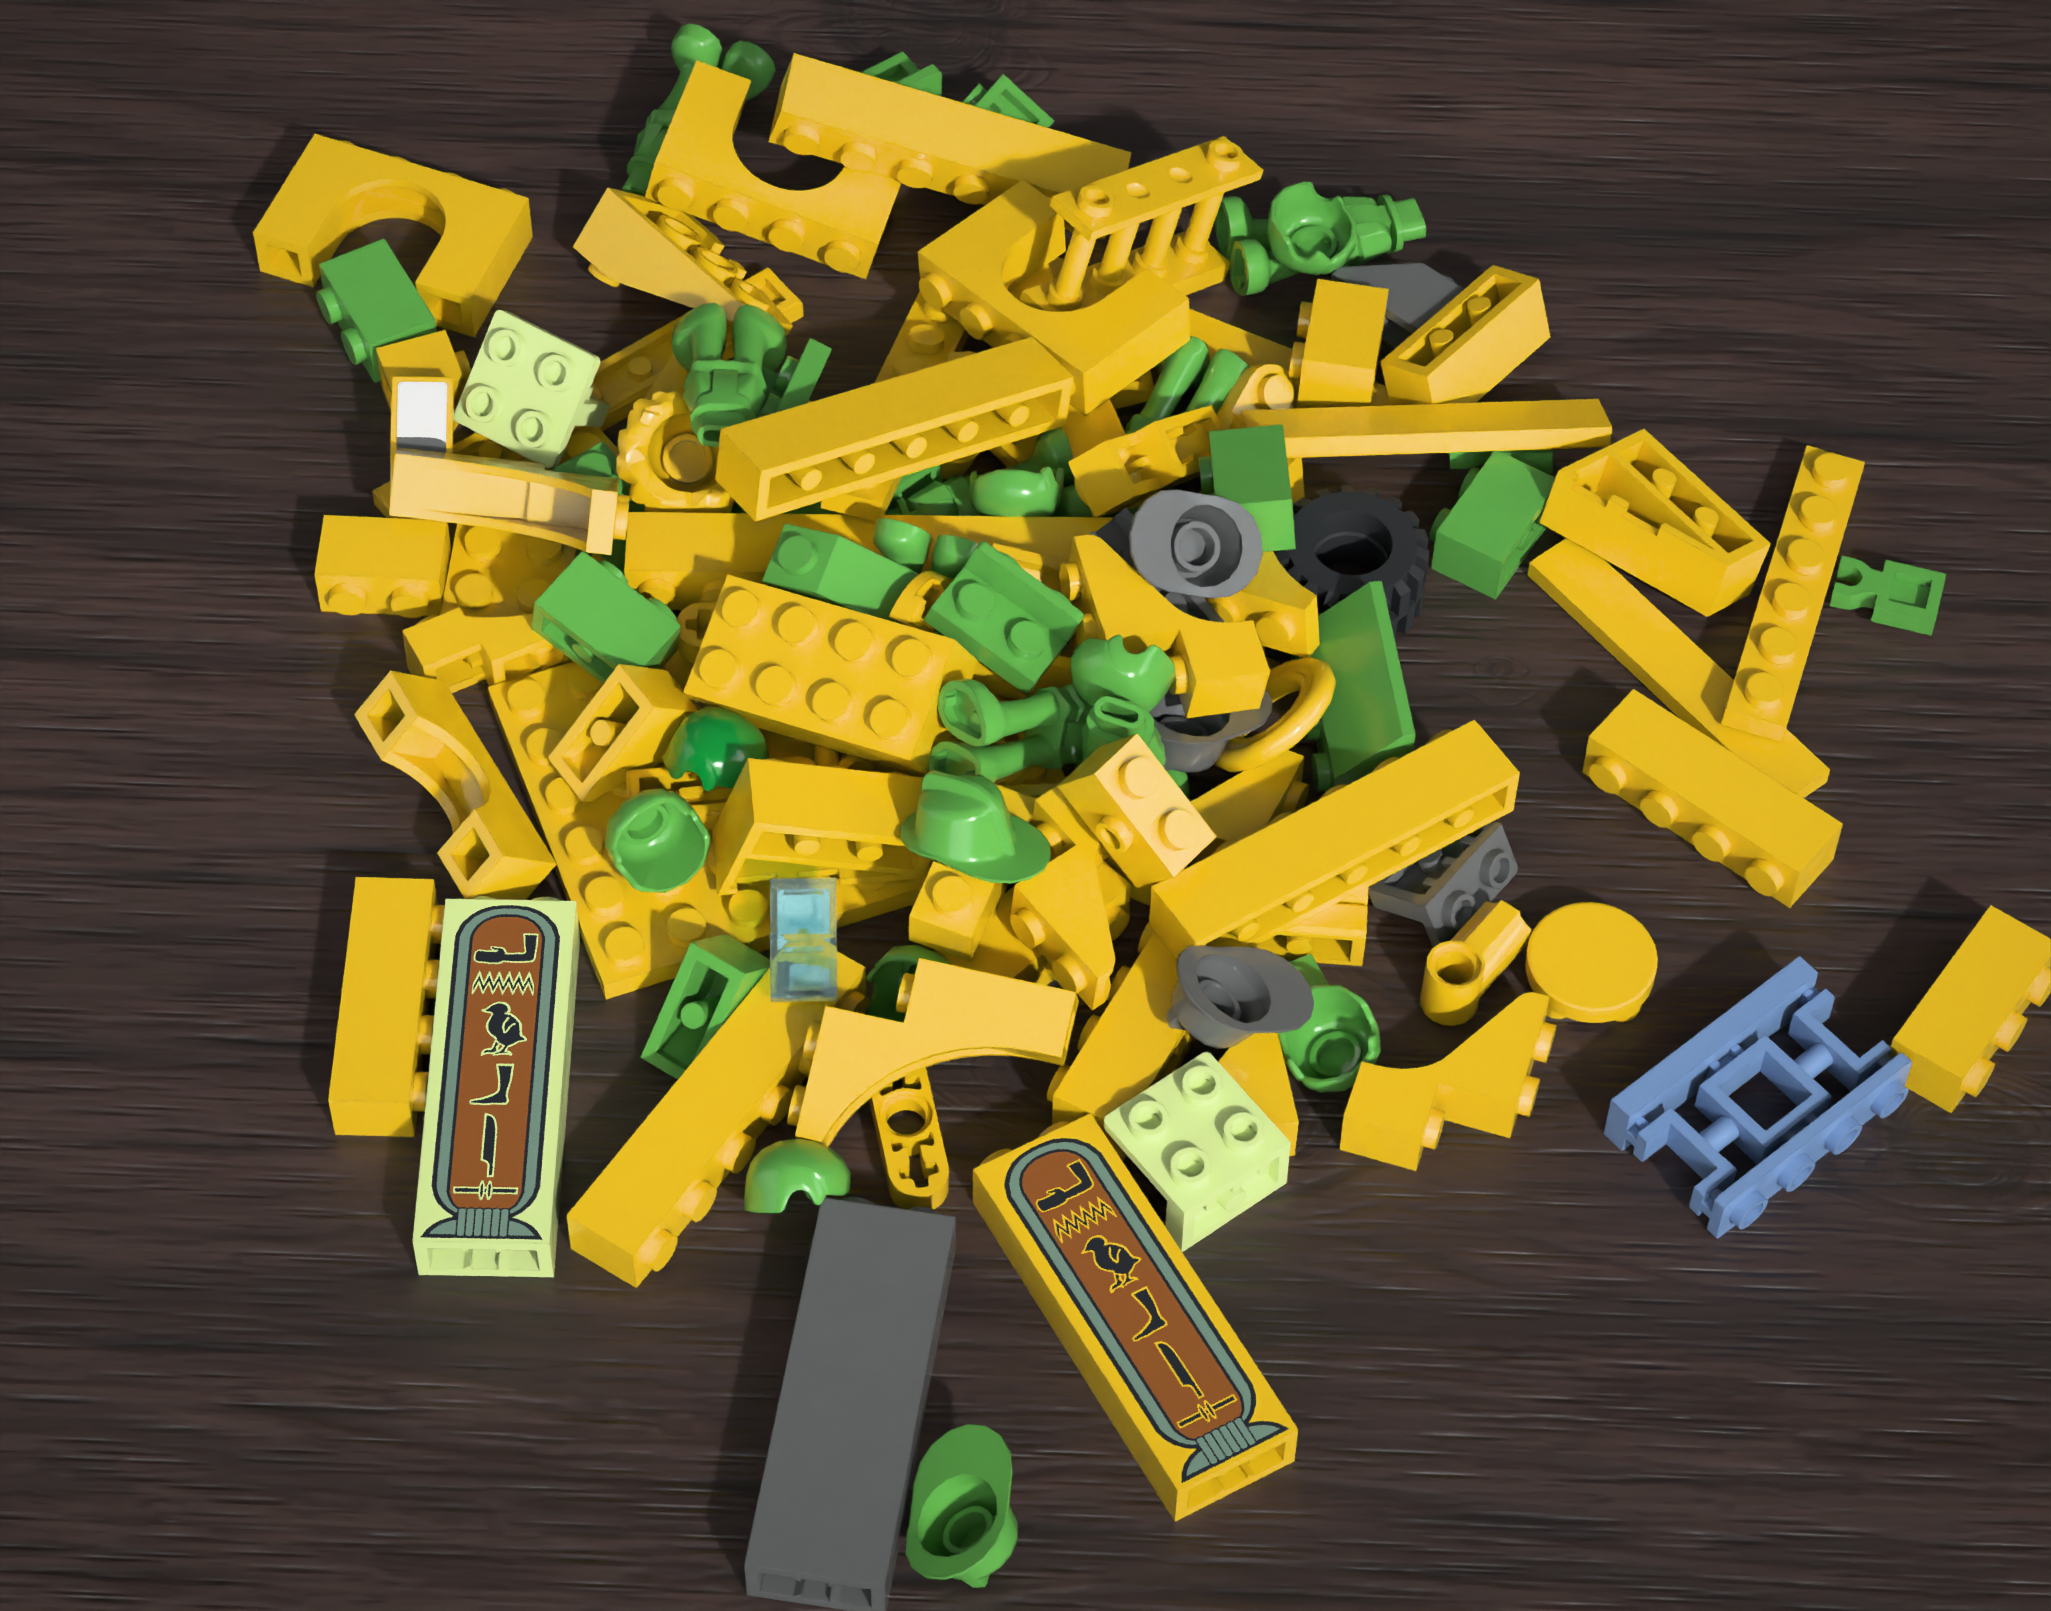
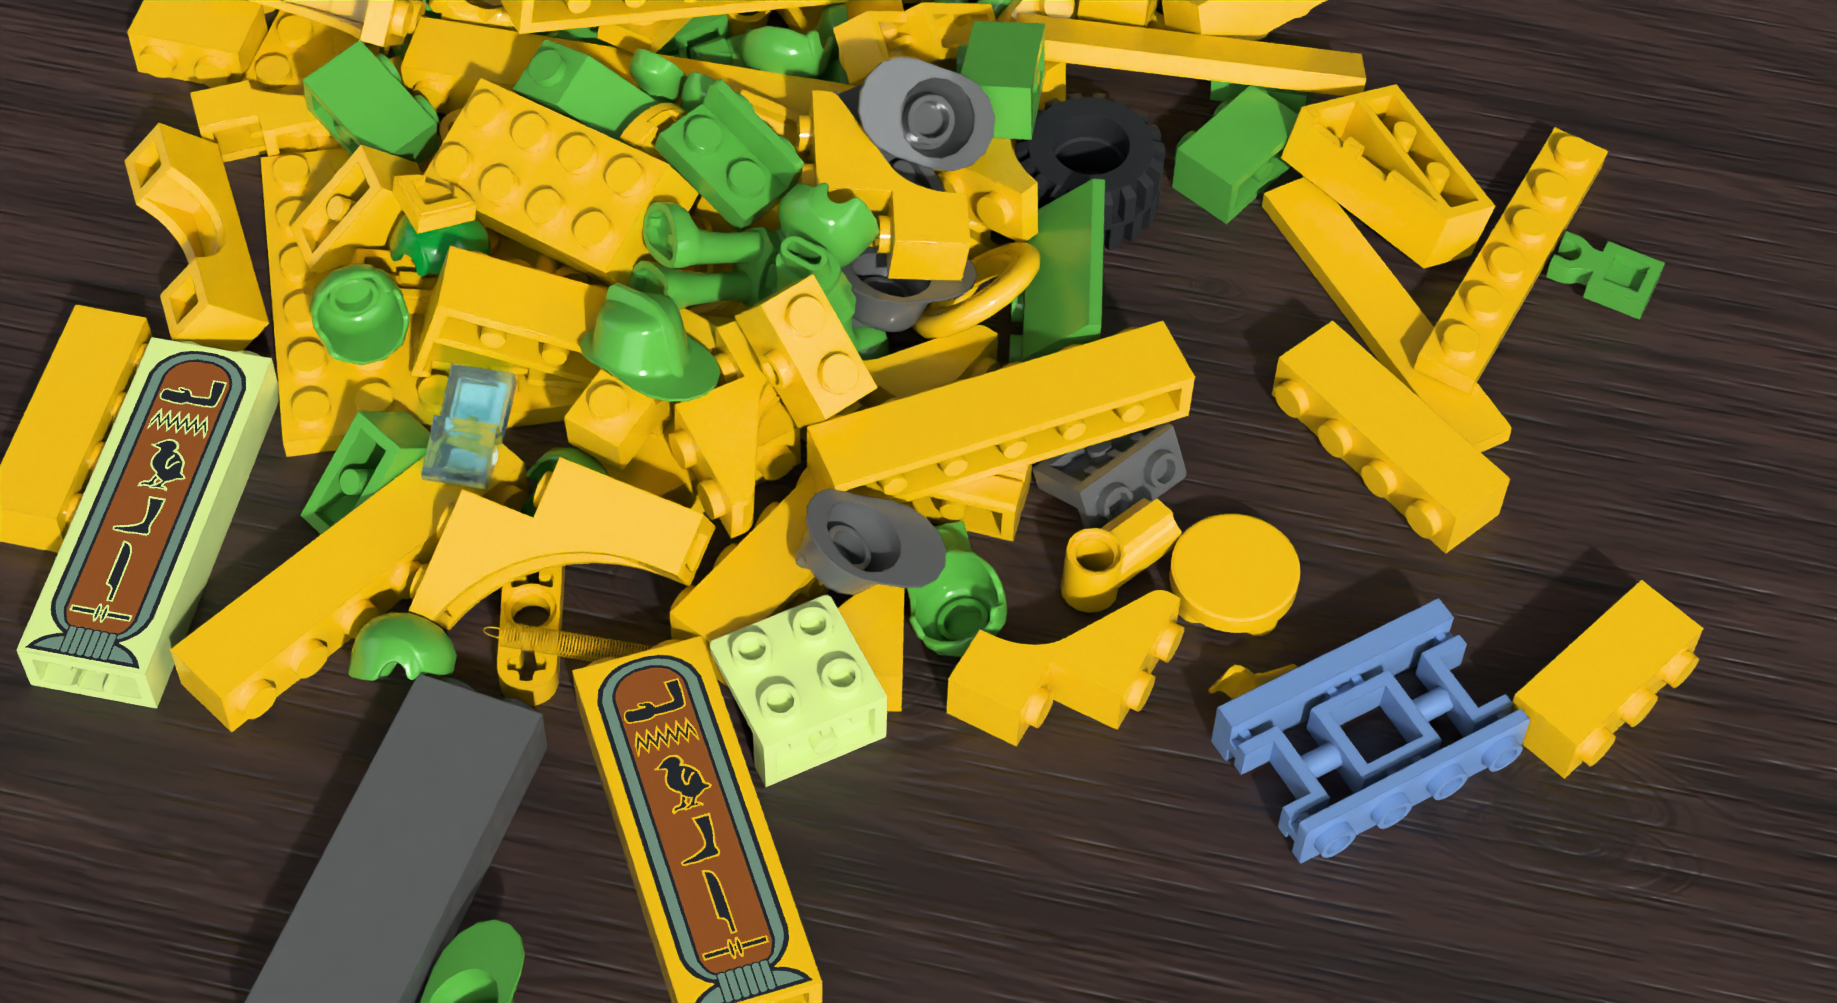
camera: 10 degrees right, 0 degrees up
(709, 716) = (432, 205): none -> yellow tile
(905, 1143) = (561, 651): none -> yellow piece
(1624, 1071) = (1240, 680): none -> yellow hand

